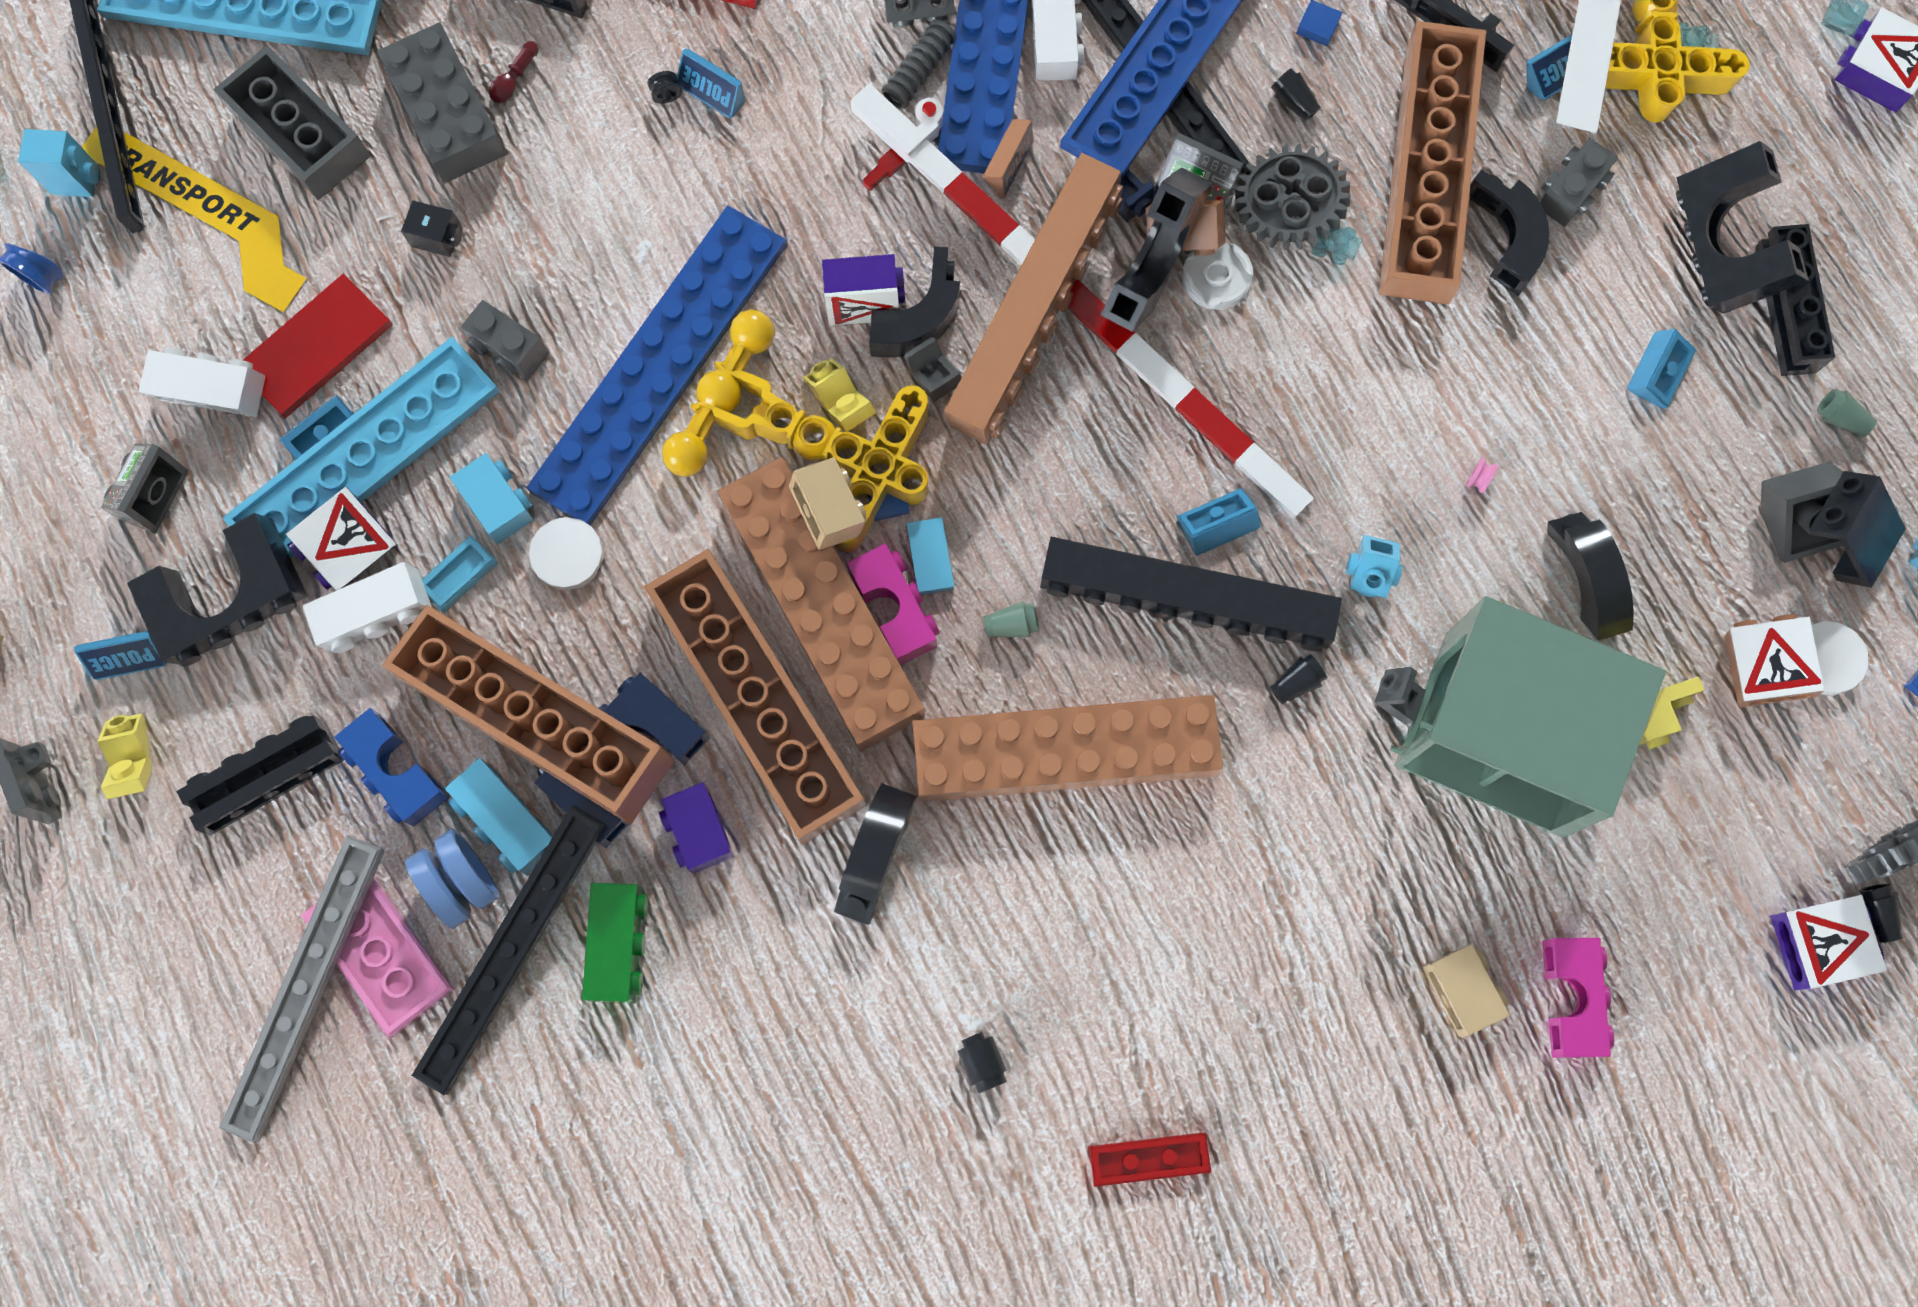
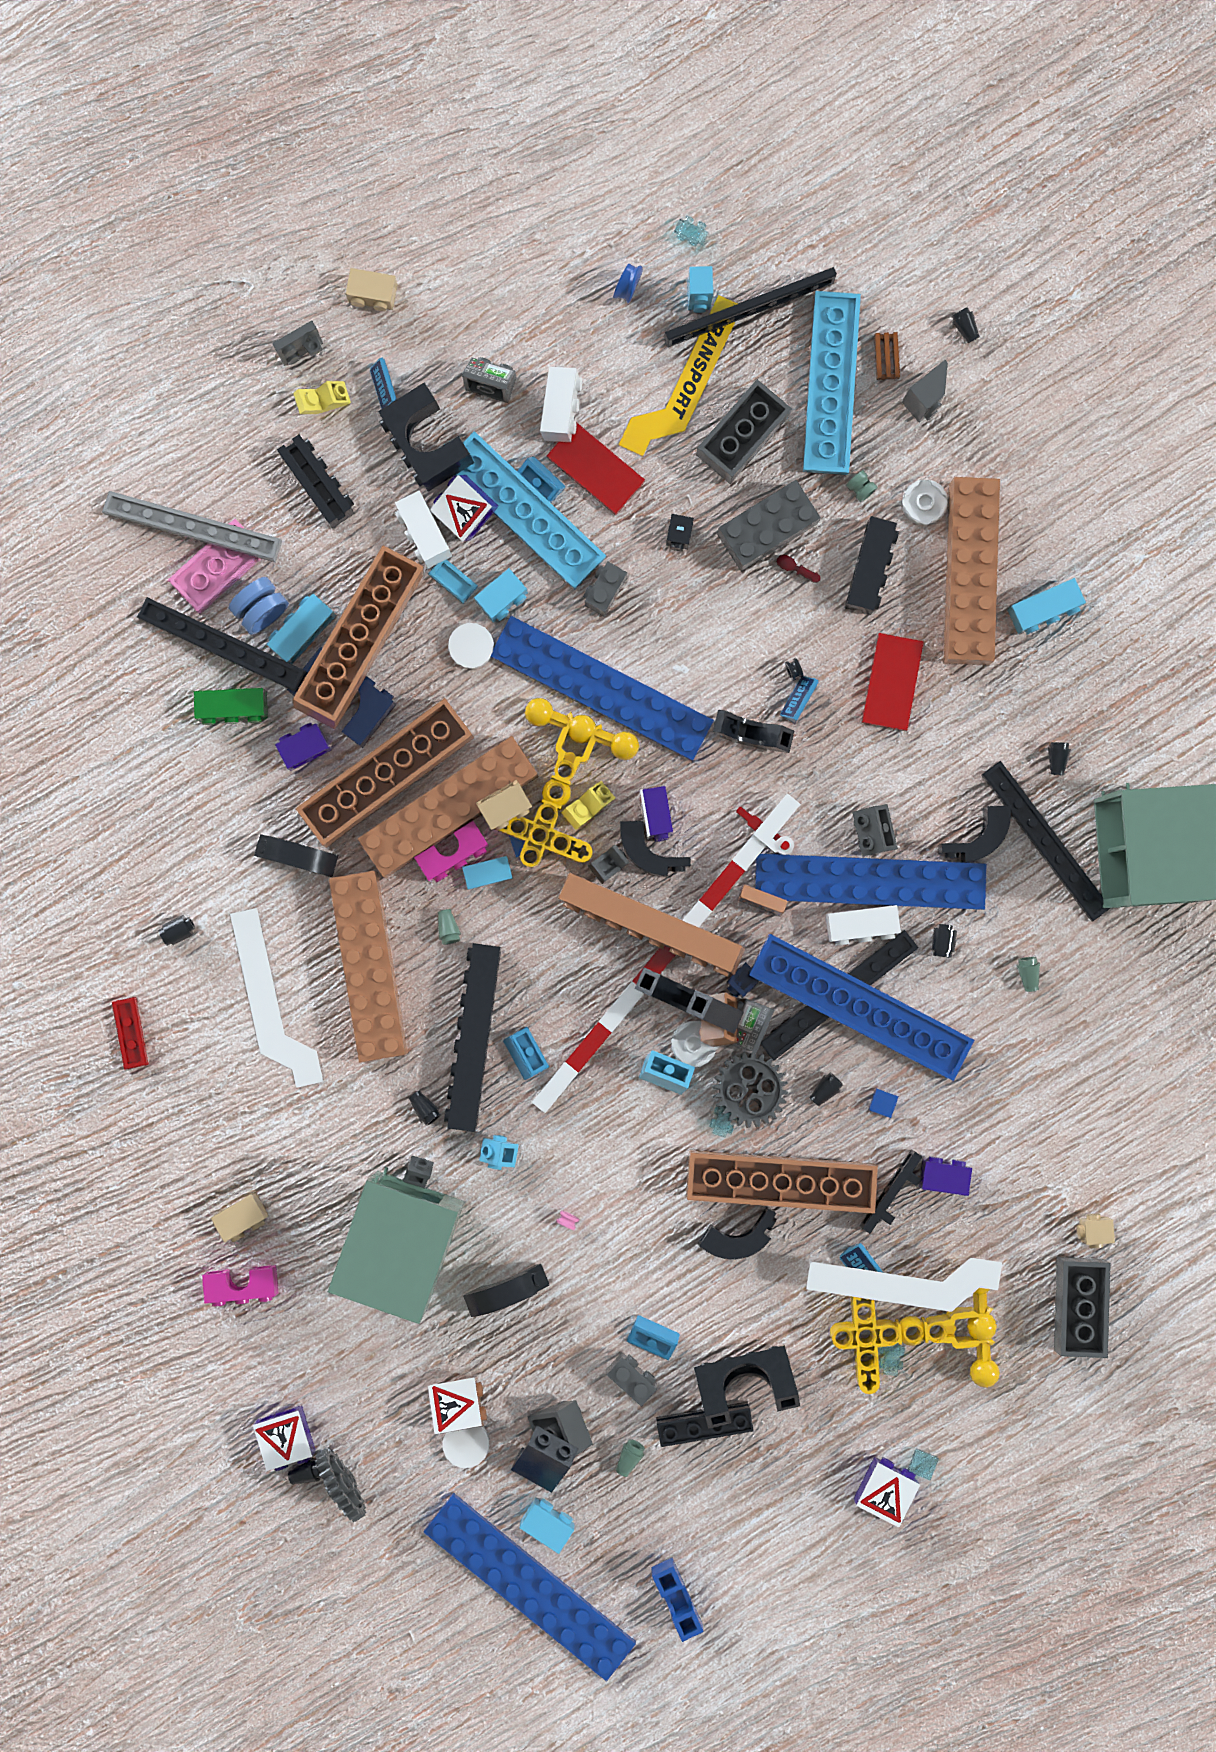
camera: 80 degrees right, 10 degrees up
(369, 745) = (336, 542): blue arch -> none
(756, 144) = (753, 733): none -> black arch
(919, 64) = (826, 836): dark grey piece -> none
(1112, 928) = (264, 1003): none -> white sticker
(1261, 308) = (666, 1072): none -> medium azure brick
(1572, 188) = (770, 1275): dark grey brick -> none
(1663, 718) = (413, 1333): light yellow slope -> none
(1728, 398) = (631, 1378): none -> dark grey brick

